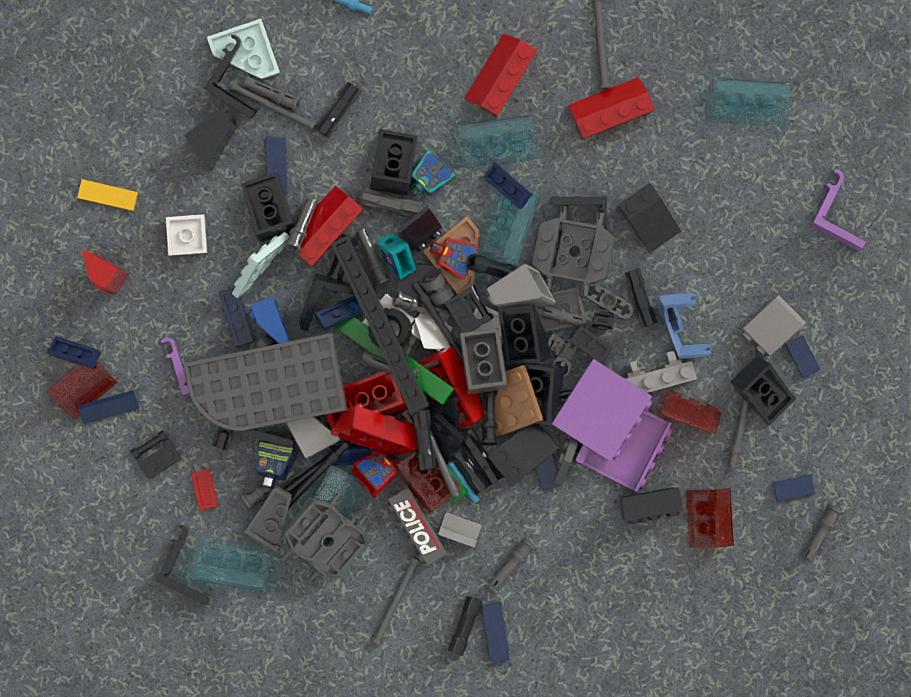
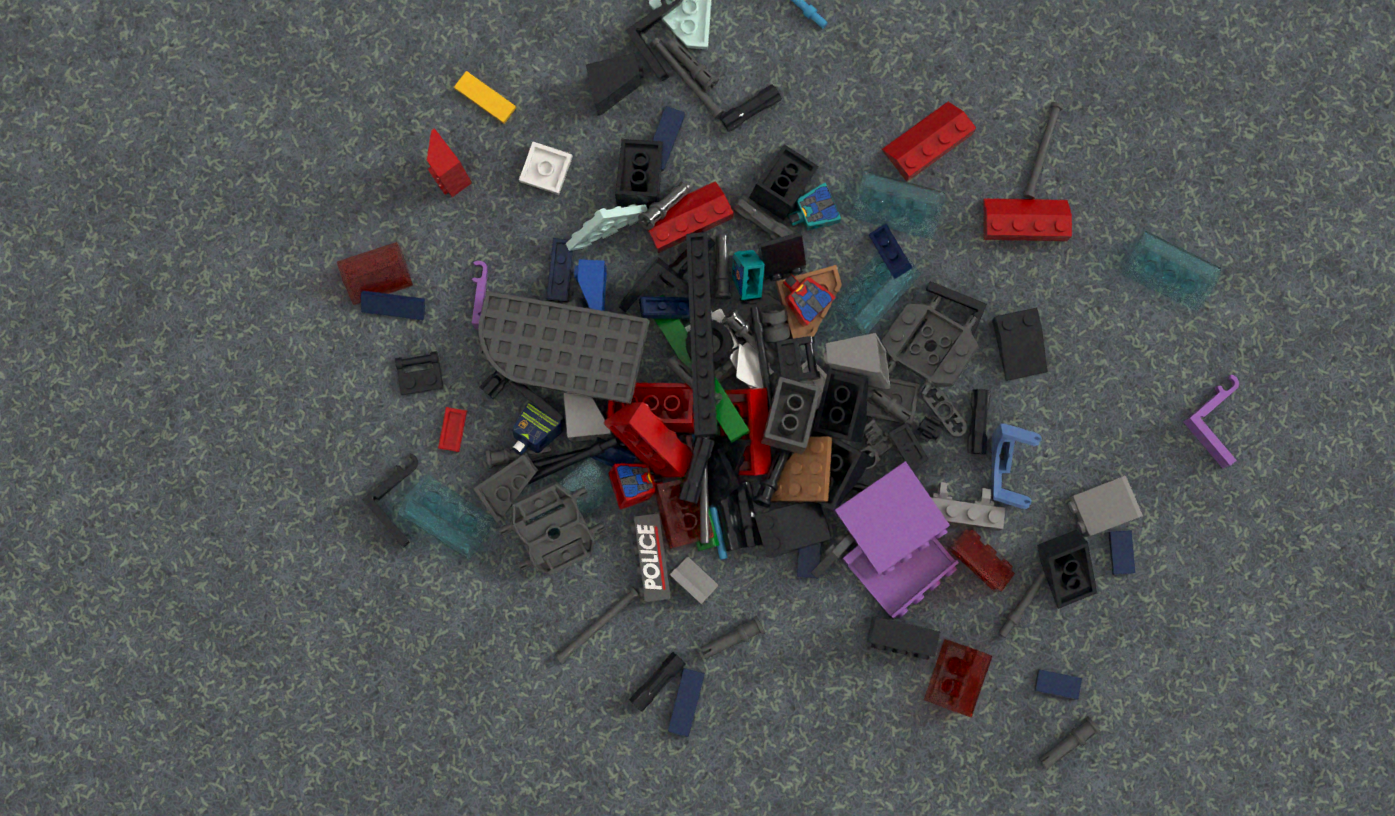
camera: 30 degrees right, 5 degrees down
(74, 352) = (382, 235): dark blue tile -> none
(487, 266) = (831, 317): black axle -> none

